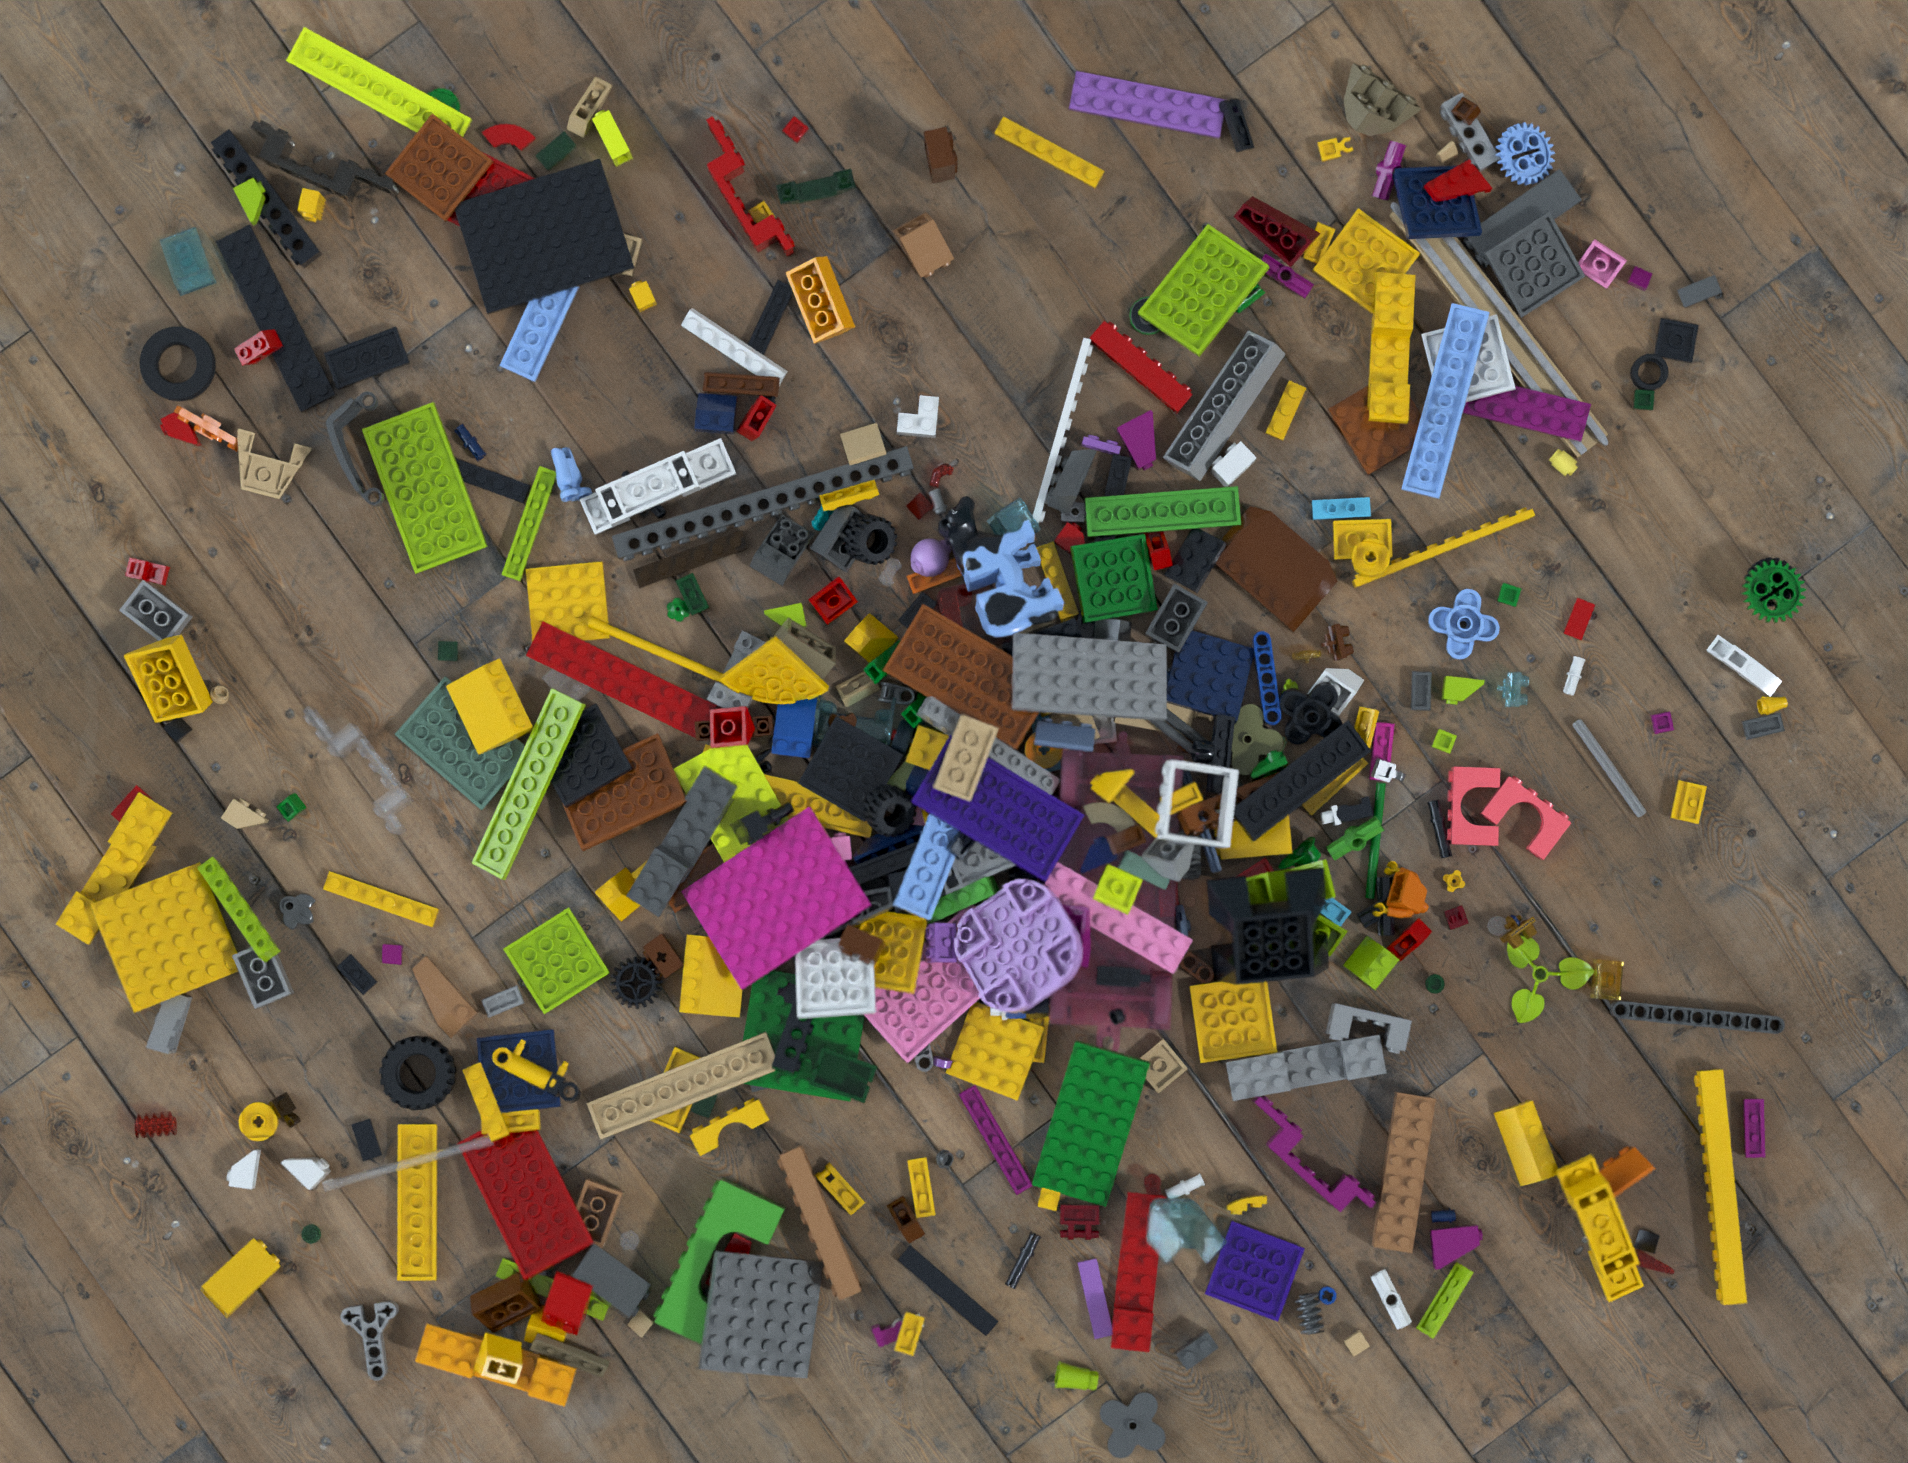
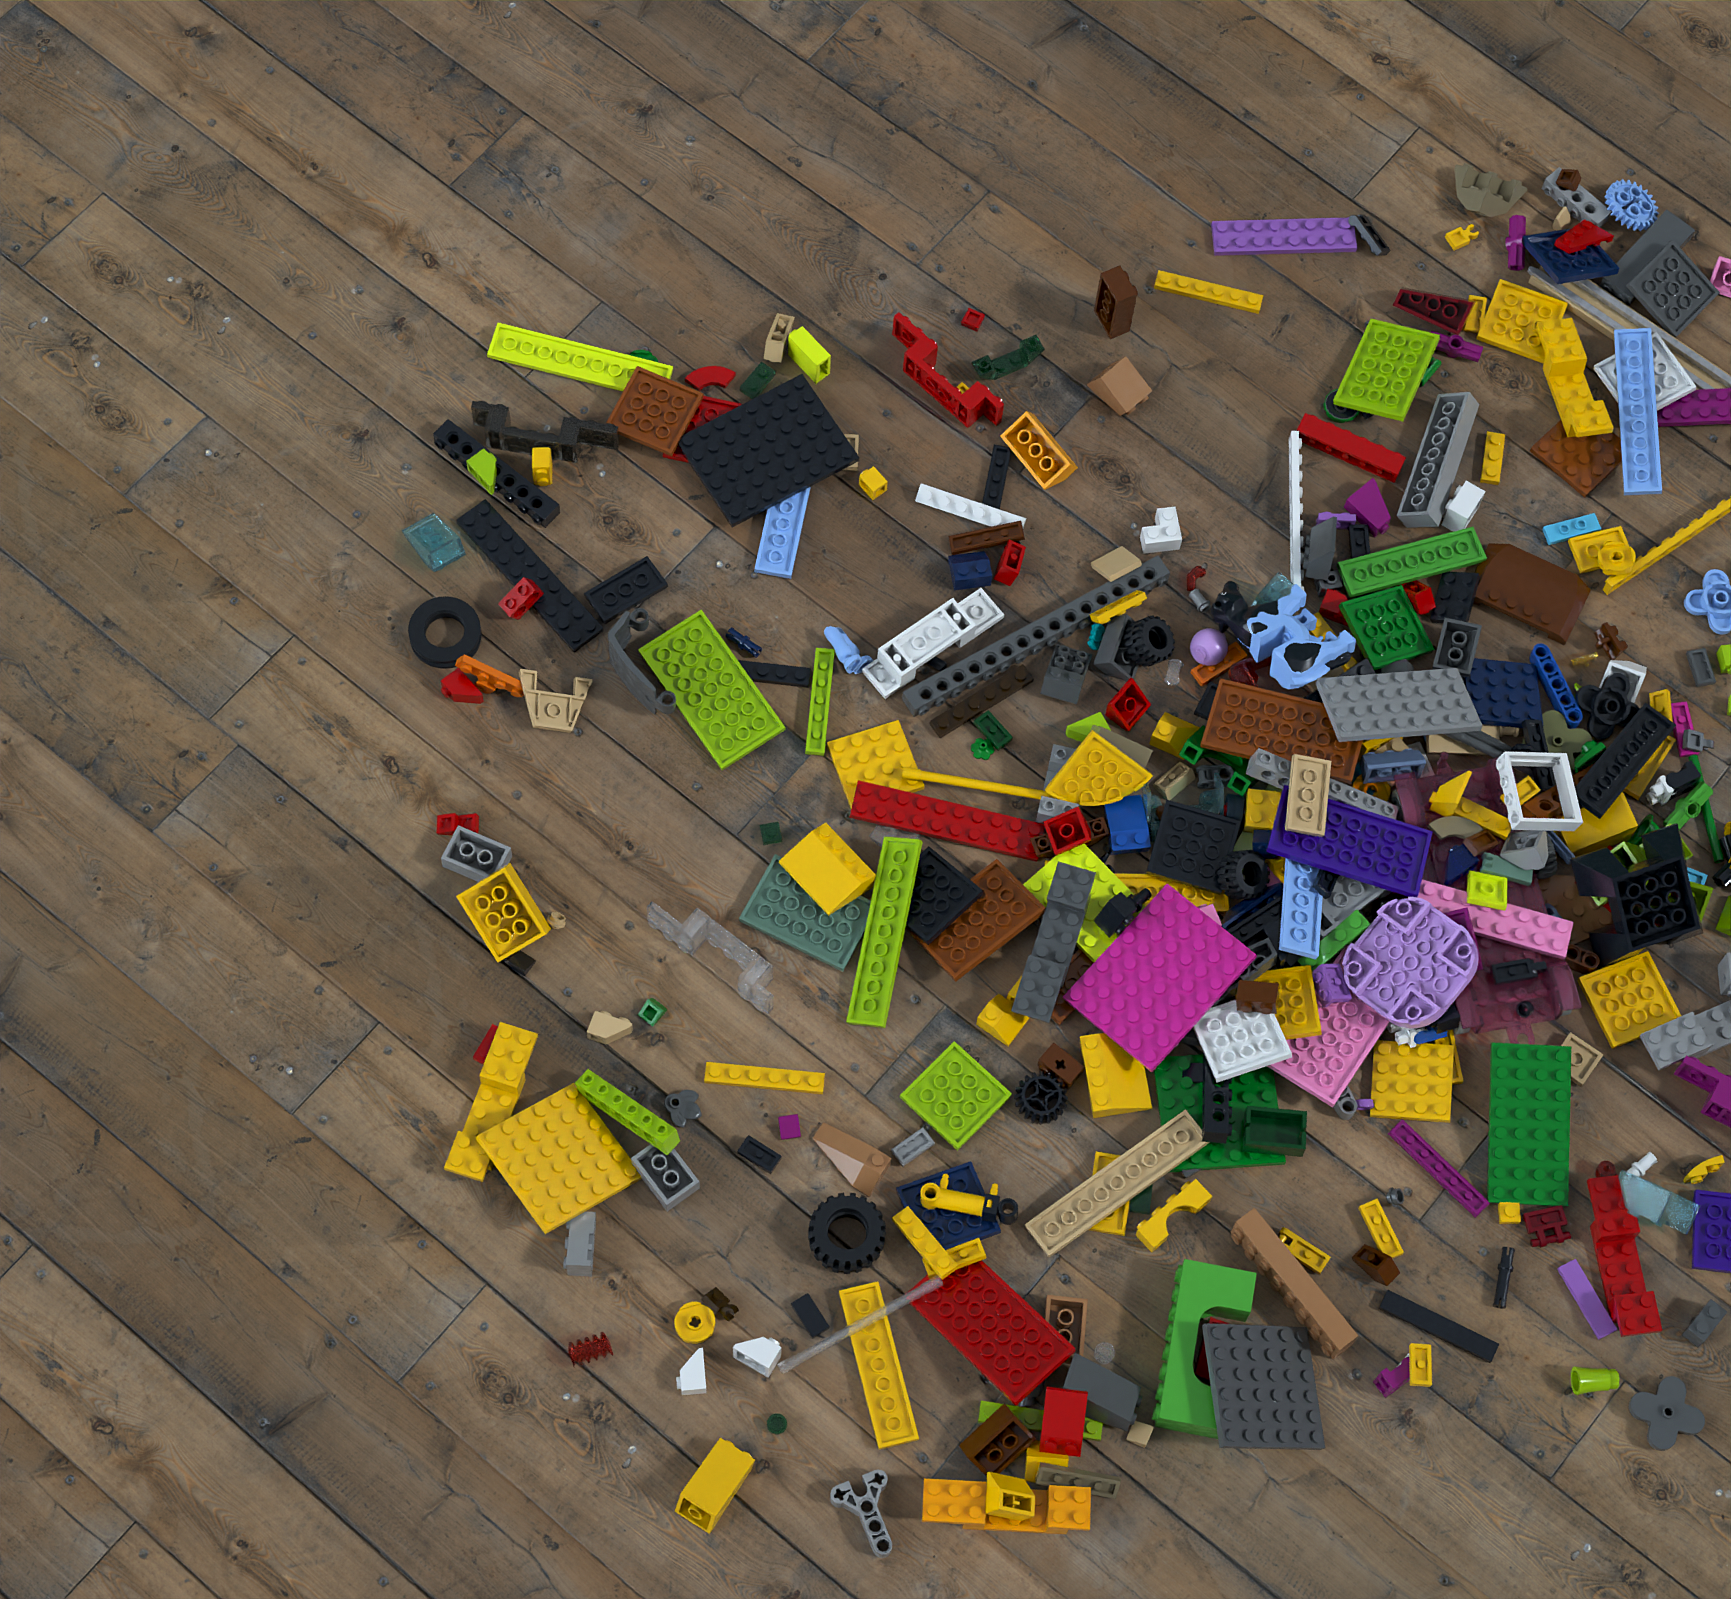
camera: 20 degrees left, 20 degrees down
(919, 506) = (1184, 608): clear red slope -> none

